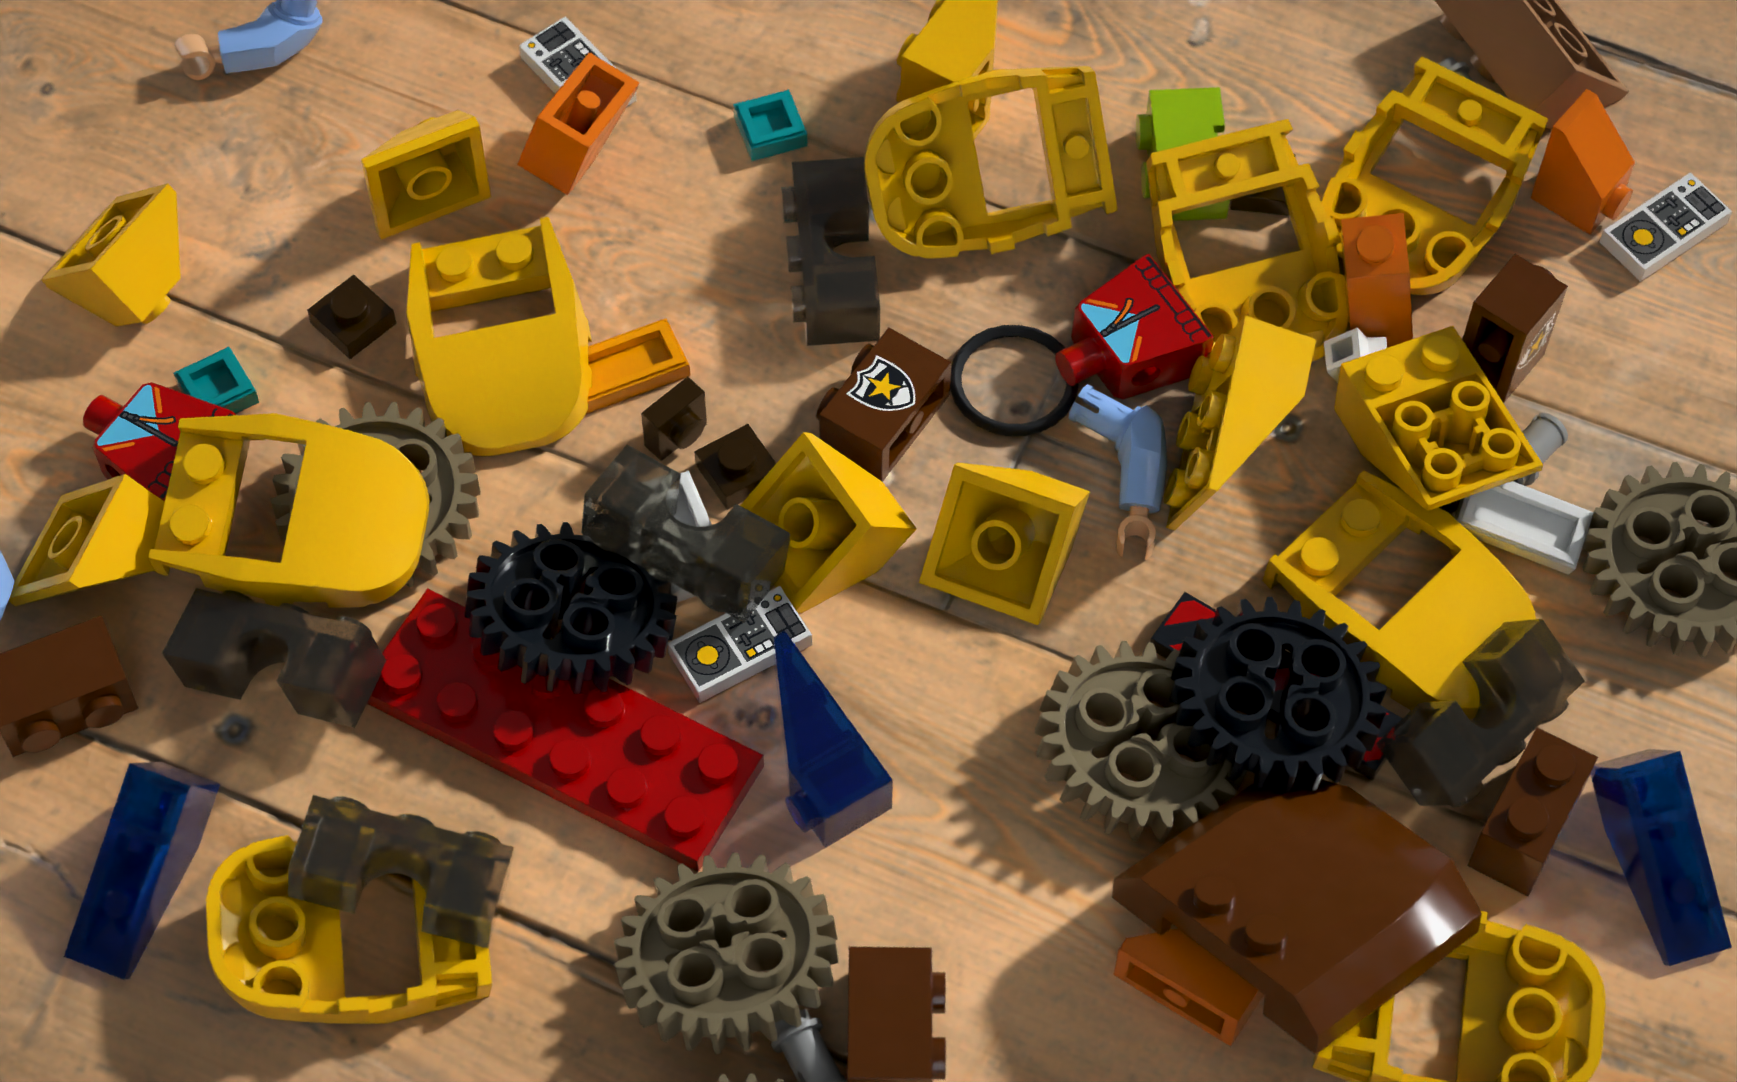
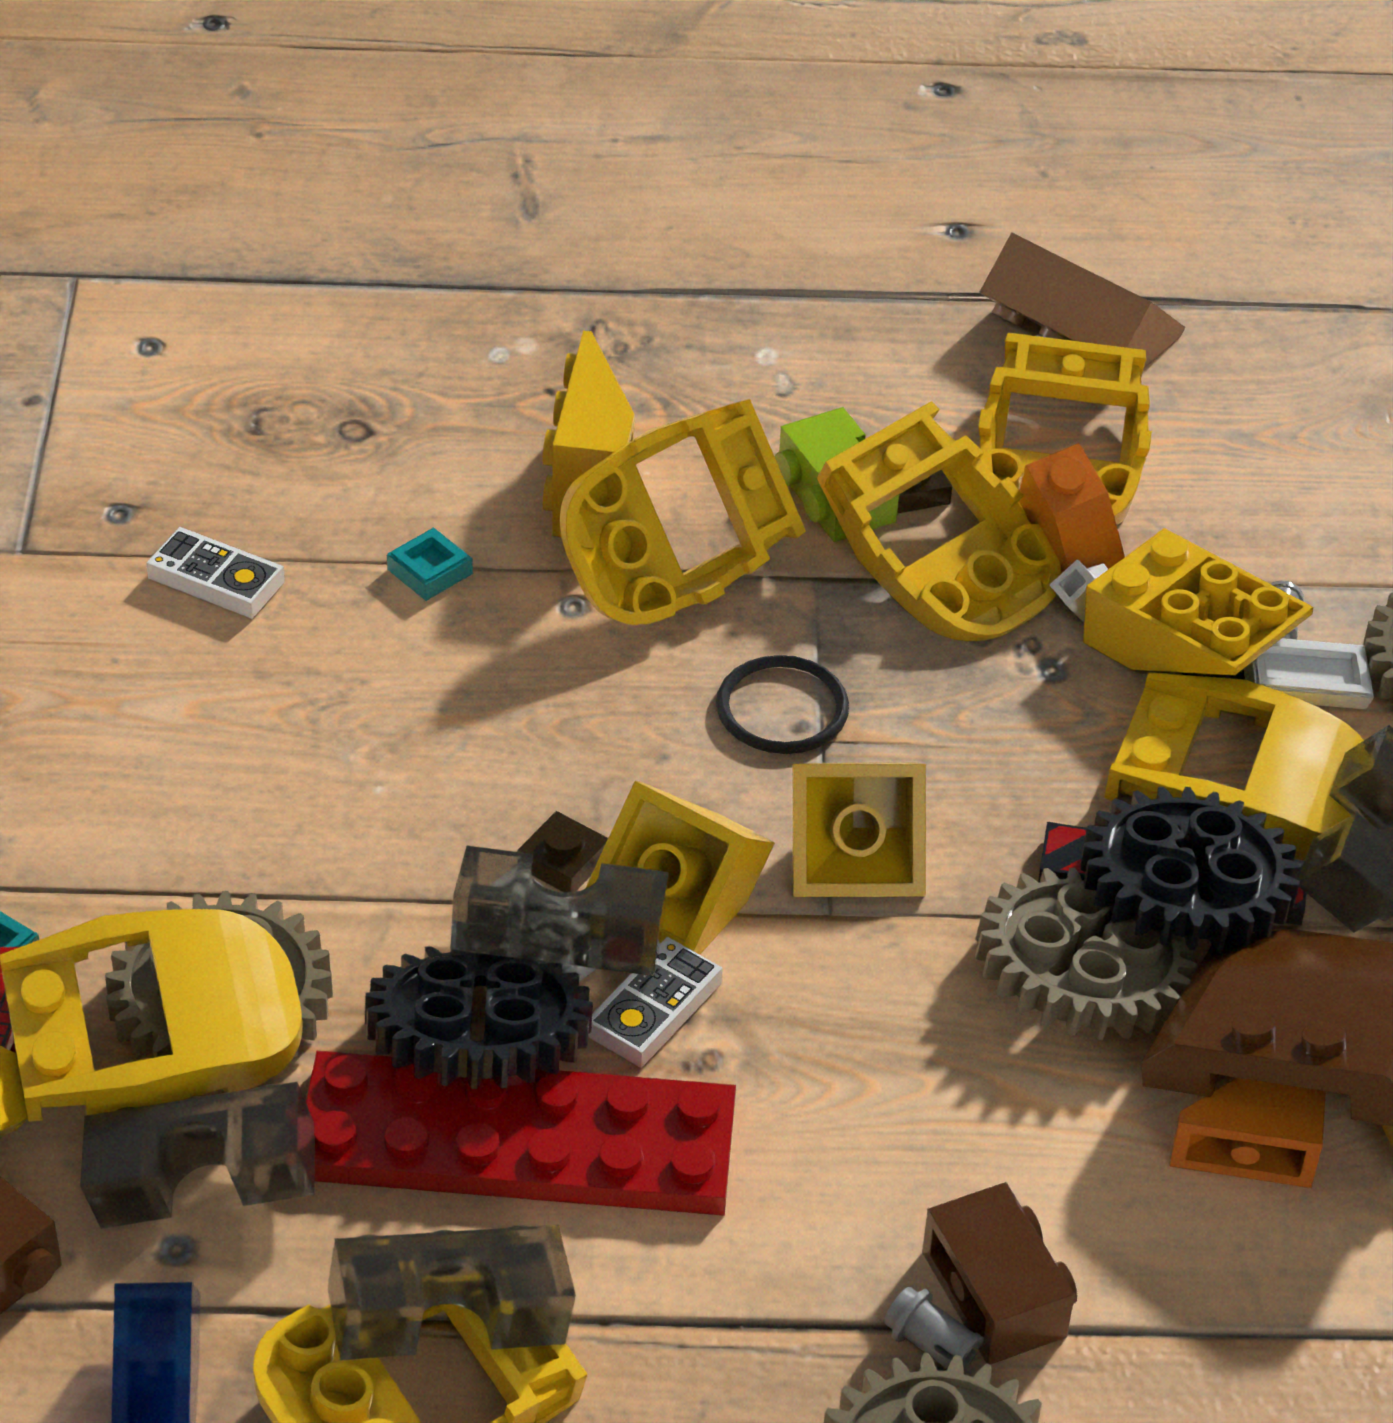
camera: 25 degrees left, 15 degrees down
(351, 316) = (100, 842): dark brown plate -> none
(426, 173) = (125, 685): yellow slope -> none
(508, 381) = (298, 845): yellow slope -> none
(577, 123) = (248, 607): orange slope -> none
(634, 364) = (399, 805): light orange tile -> none
(675, 419) = (486, 819): dark brown plate -> none
(722, 935) = (805, 1263): dark tan gear -> none
(829, 766) = (794, 1063): clear blue slope -> none
(836, 291) = (533, 618): clear smoke arch -> none
(884, 402) = (679, 742): reddish brown brick -> none
(1134, 334) = (880, 627): red torso -> none
(1142, 456) = (943, 721): light blue arm -> none
(1238, 401) = (1015, 650): yellow slope -> none
(1513, 323) = (1215, 500): reddish brown brick -> none
(1585, 167) = (1194, 384): orange slope -> none
(1665, 226) = (1280, 417): tile -> none

